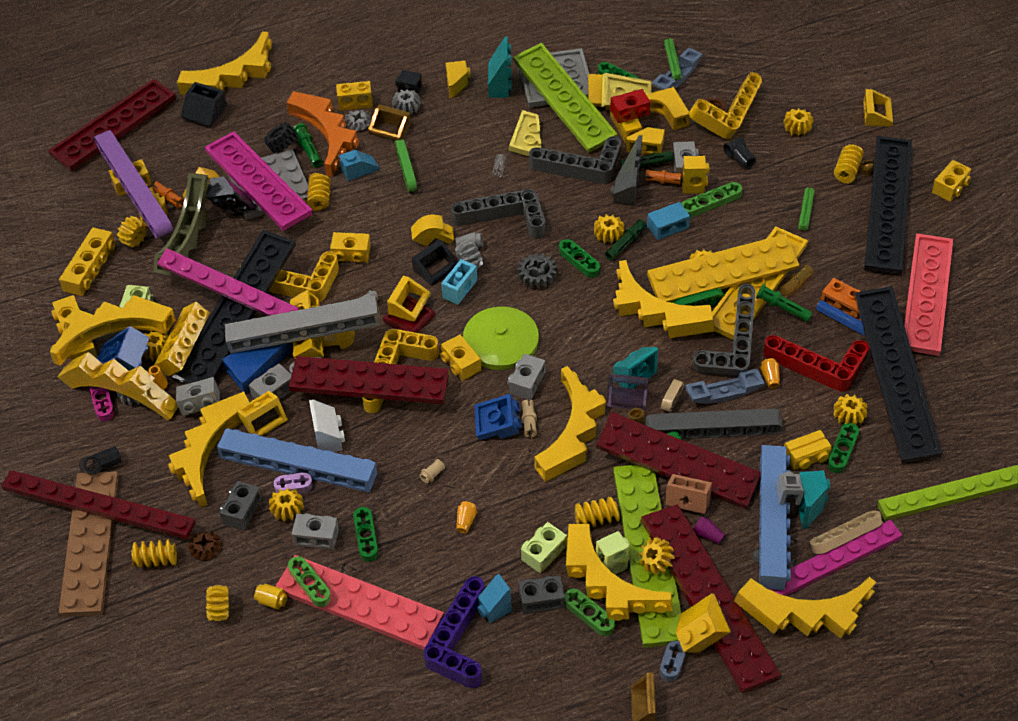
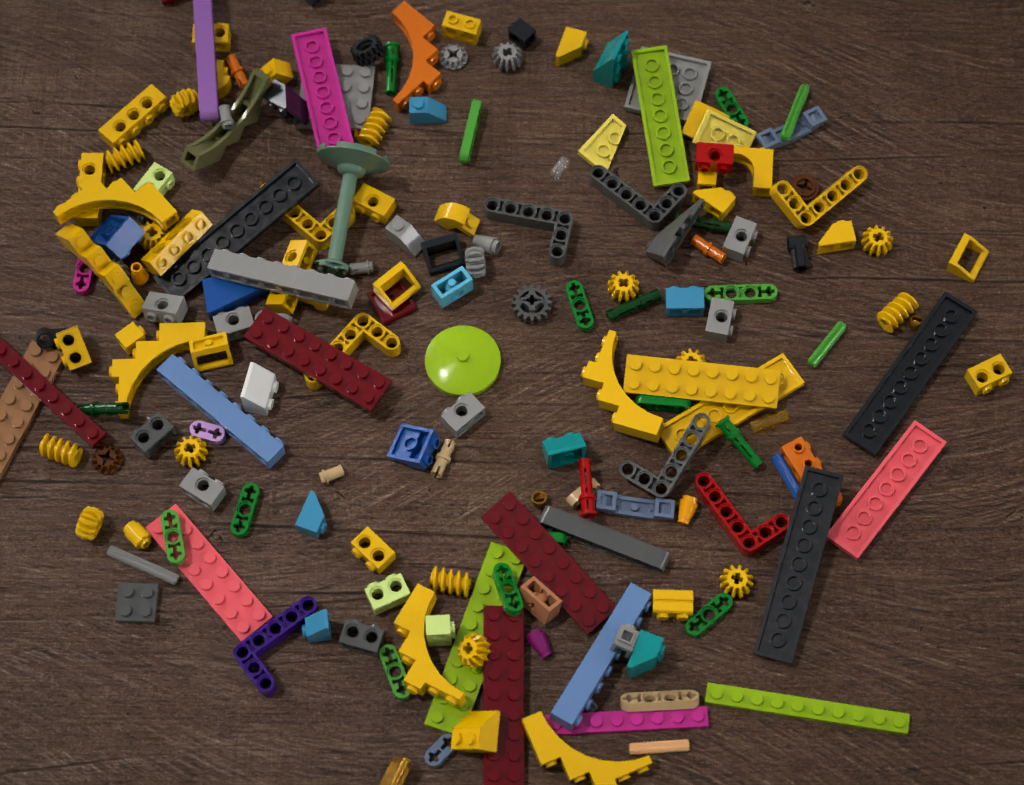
camera: 25 degrees right, 15 degrees up
(93, 291) = (124, 155): none -> yellow piece
(128, 457) = (77, 346): none -> yellow brick
(173, 504) = (97, 409): none -> dark green pin
(174, 434) = (129, 335): none -> yellow brick
(182, 225) = (226, 118): none -> light grey pin
(223, 284) = (235, 206): dark pink plate -> none
(289, 621) = (143, 565): none -> light grey axle
(301, 657) = (137, 603): none -> dark grey plate
(317, 214) = (352, 162): none -> sand green piece
(390, 116) = (487, 68): pearl gold tile -> none
(392, 261) = (404, 236): none -> light grey slope
(435, 513) = (311, 518): none -> dark azure slope
(460, 357) = (413, 357): yellow brick -> none
(465, 516) = (337, 532): light orange cone -> none
(509, 513) = (376, 548): none -> yellow brick
(569, 448) = (460, 506): yellow arch -> none
(627, 397) = (543, 472): clear purple tile -> none
(666, 501) = (505, 598): none -> green beam
(681, 392) = (590, 497): none -> red pin
(694, 174) = (735, 262): yellow brick -> none
(706, 223) = (720, 330): none -> light grey brick
(766, 131) = (838, 238): none -> yellow slope
(869, 571) = (659, 747): none -> light nougat axle

